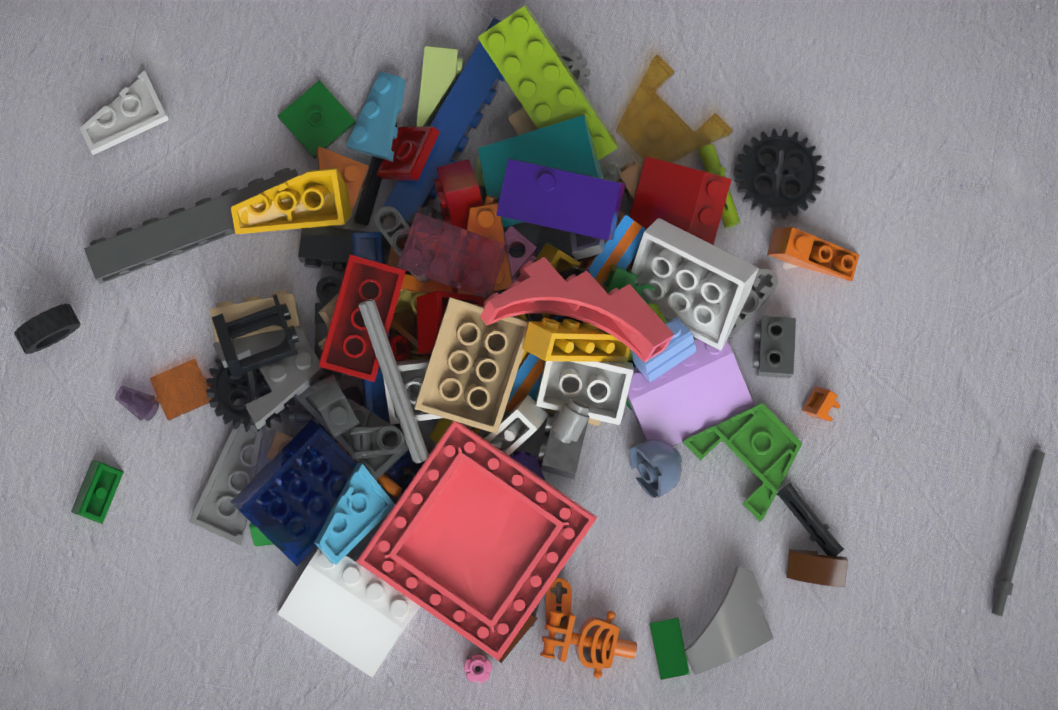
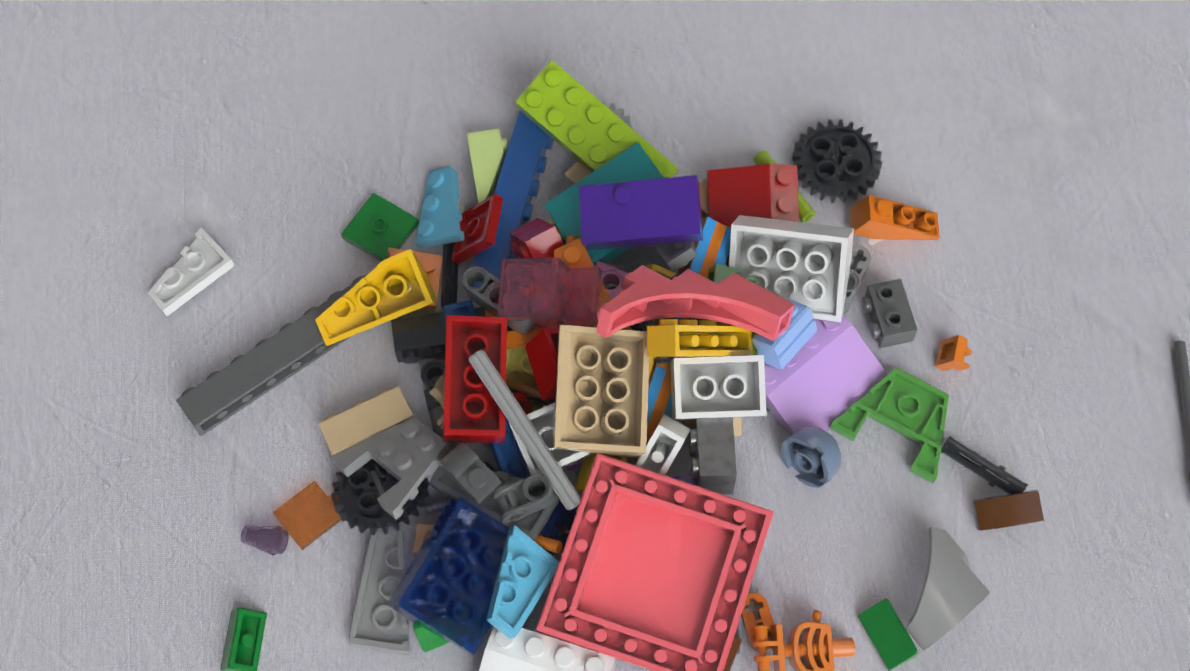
camera: 10 degrees left, 15 degrees down
(47, 328) = (154, 486): black tyre -> none
(275, 315) = (386, 410): black panel -> none
(571, 421) = (717, 421): light grey brick -> none
(656, 129) = (702, 149): clear yellow wing -> none

